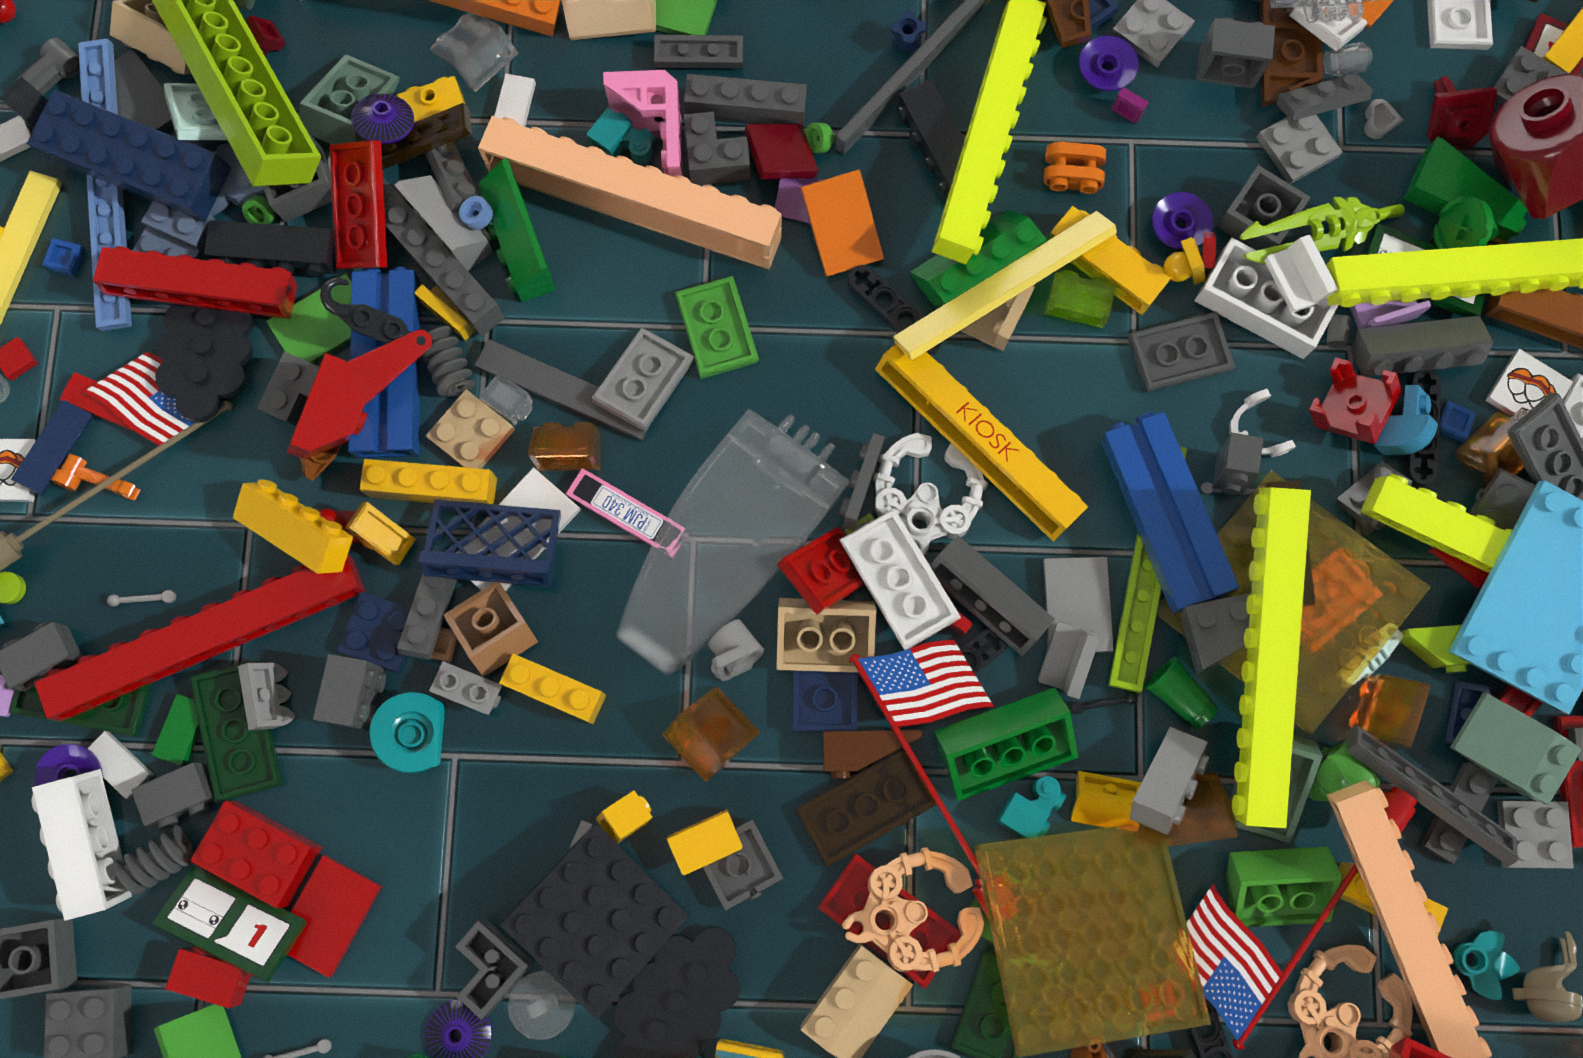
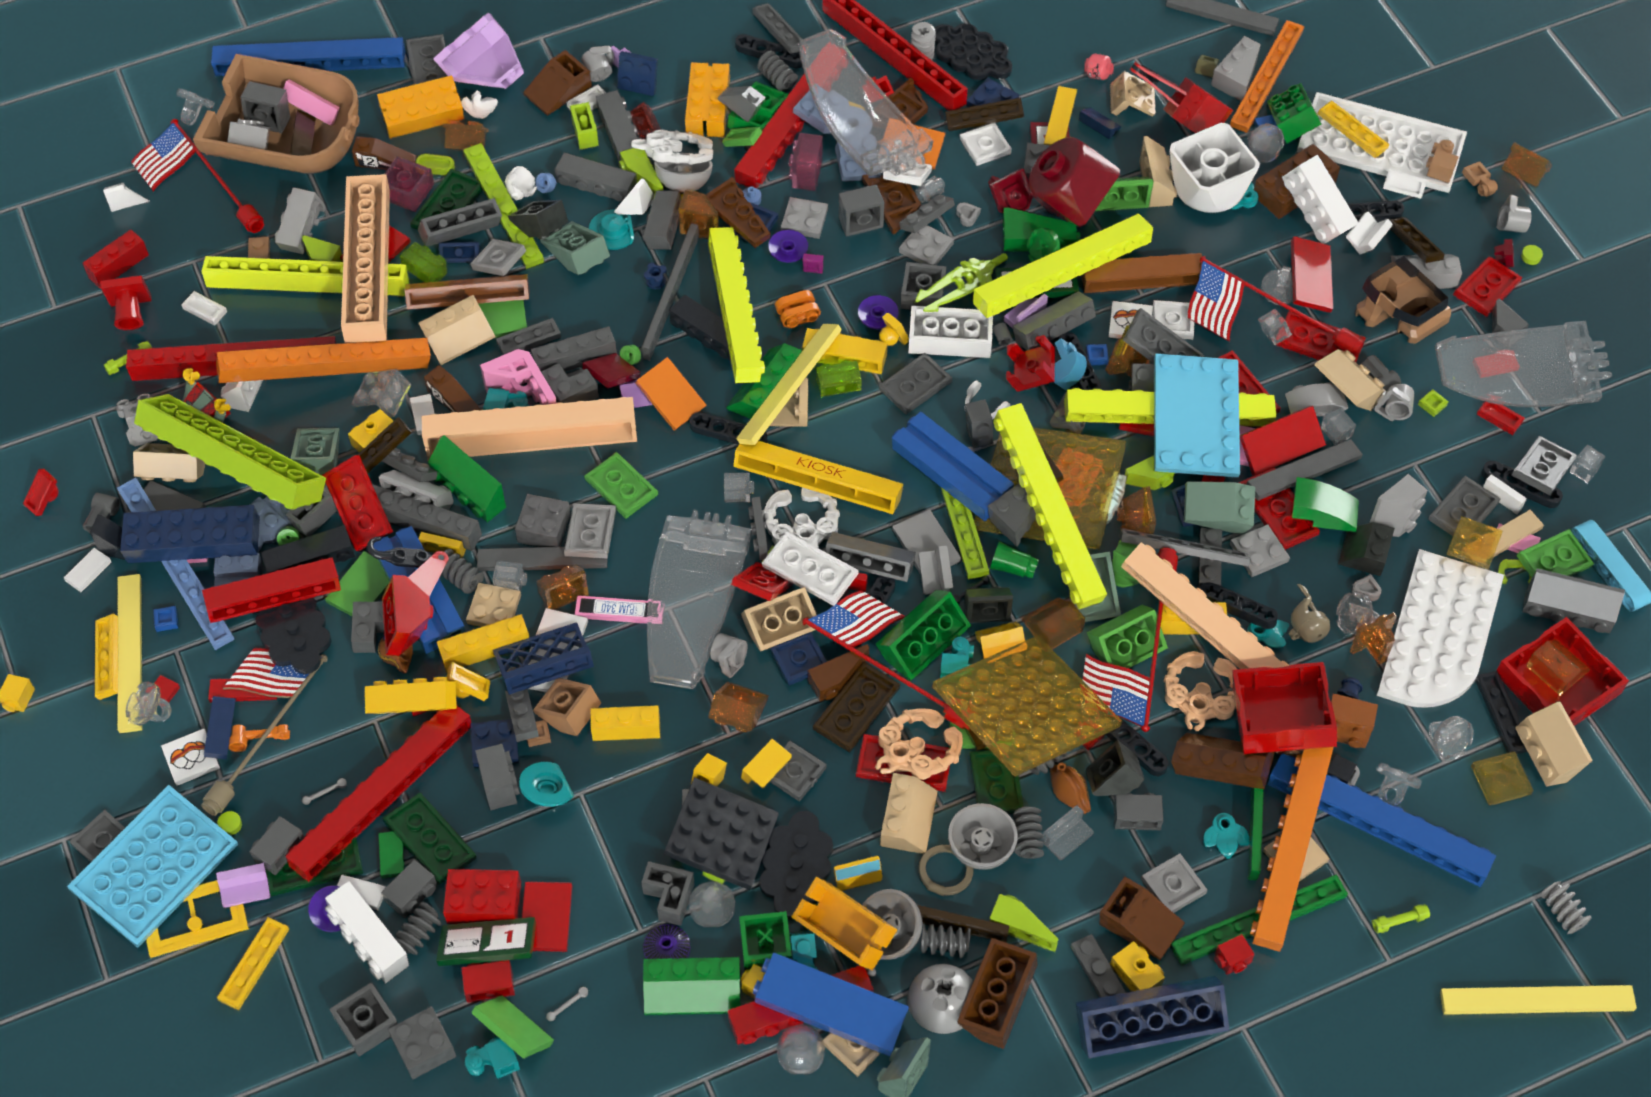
camera: 25 degrees left, 20 degrees down
(191, 113) = (224, 491): light aqua tile -> none
(264, 696) = (433, 799): light grey plate -> none
(382, 118) = (346, 446): dish -> none
(466, 688) = (569, 745): light grey hinge -> none
(475, 212) = (437, 475): medium blue tile -> none
(560, 93) = (449, 391): none -> reddish brown slope
(587, 338) = (542, 521): none -> flat silver brick
(865, 404) = (738, 487): none -> clear brick
(1117, 742) = (988, 604): none -> pearl dark grey slope
(1170, 781) = (1029, 605): light grey brick -> none
(1209, 249) = (902, 318): red tile -> none
(1301, 274) = (962, 306): white panel -> none
(1466, 908) = (1266, 616): none -> black beam

